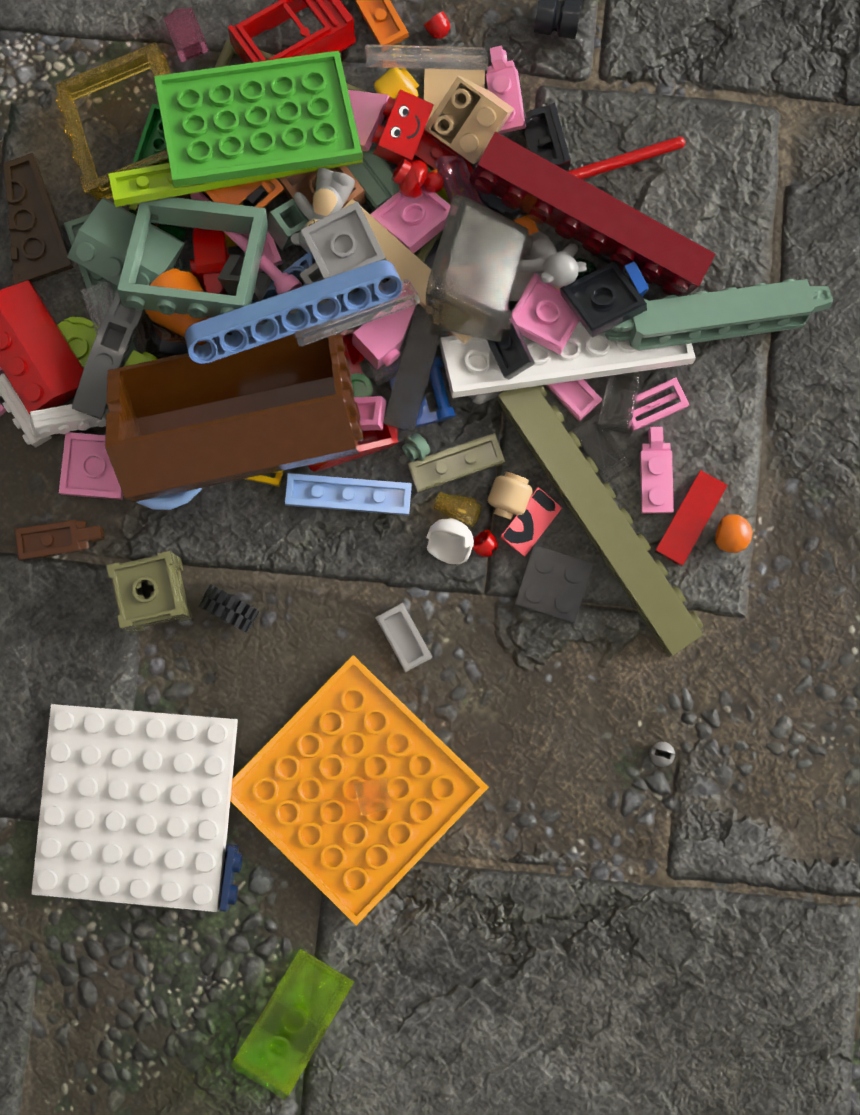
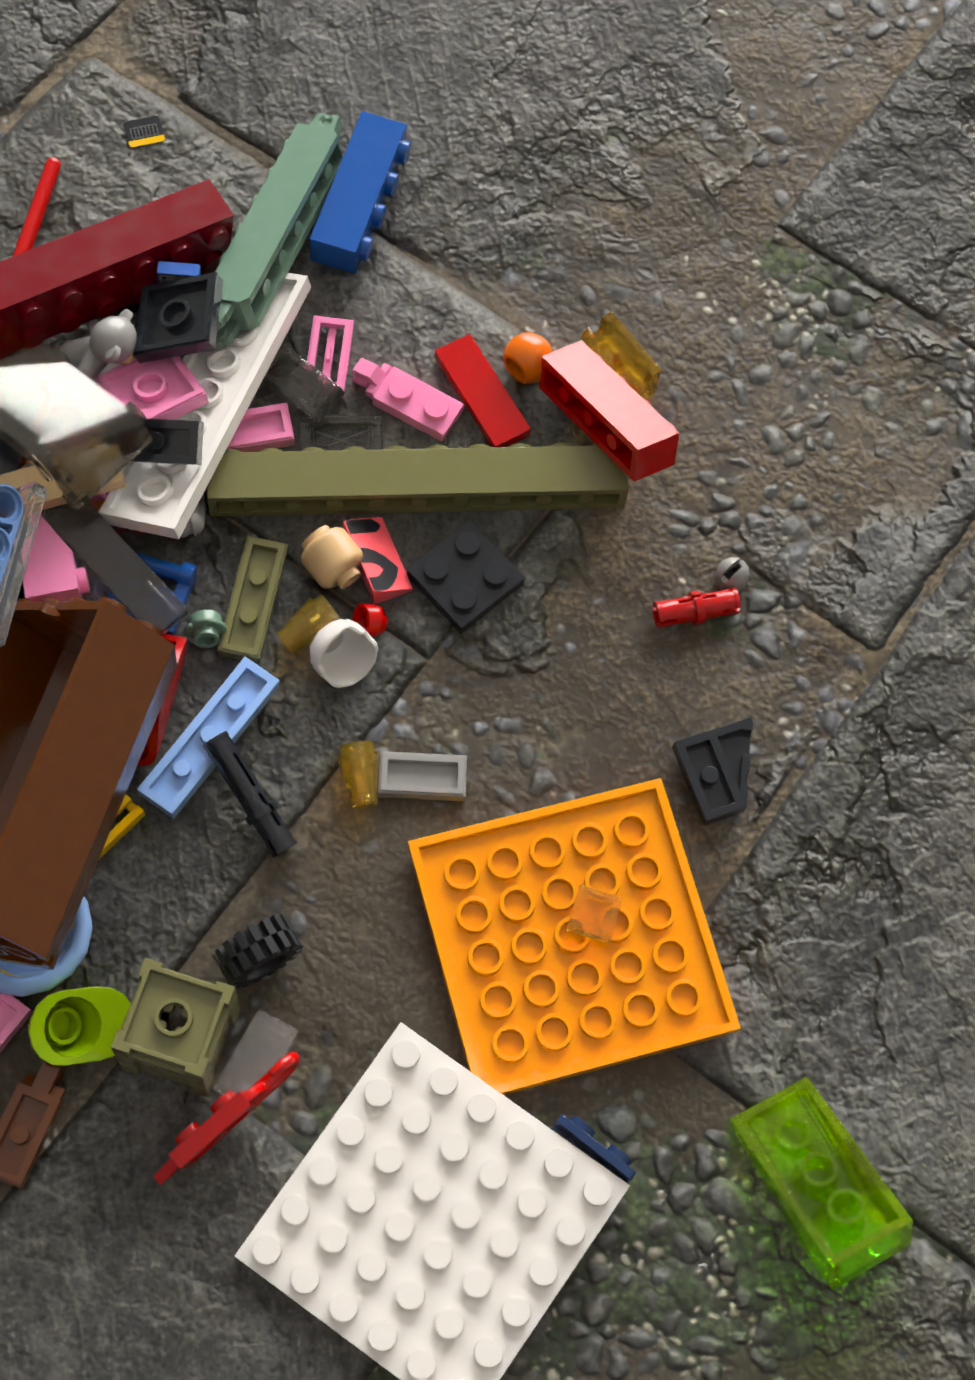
camera: 70 degrees left, 15 degrees down
(124, 532) = (77, 1025): none -> lime piece
(124, 650) = (228, 1113): none -> red plate
(169, 646) = (257, 1052): none -> clear tile
(322, 547) = (254, 801): none -> black pin
(381, 598) = (360, 771): none -> clear yellow cone
(518, 819) = (717, 769): none -> black wing
(622, 744) = (696, 607): none -> red pin
(720, 610) = (608, 410): none -> brick
(744, 182) = (144, 131): none -> black sticker
(767, 594) = (624, 354): none -> clear yellow hinge
(786, 349) = (358, 193): none -> blue brick

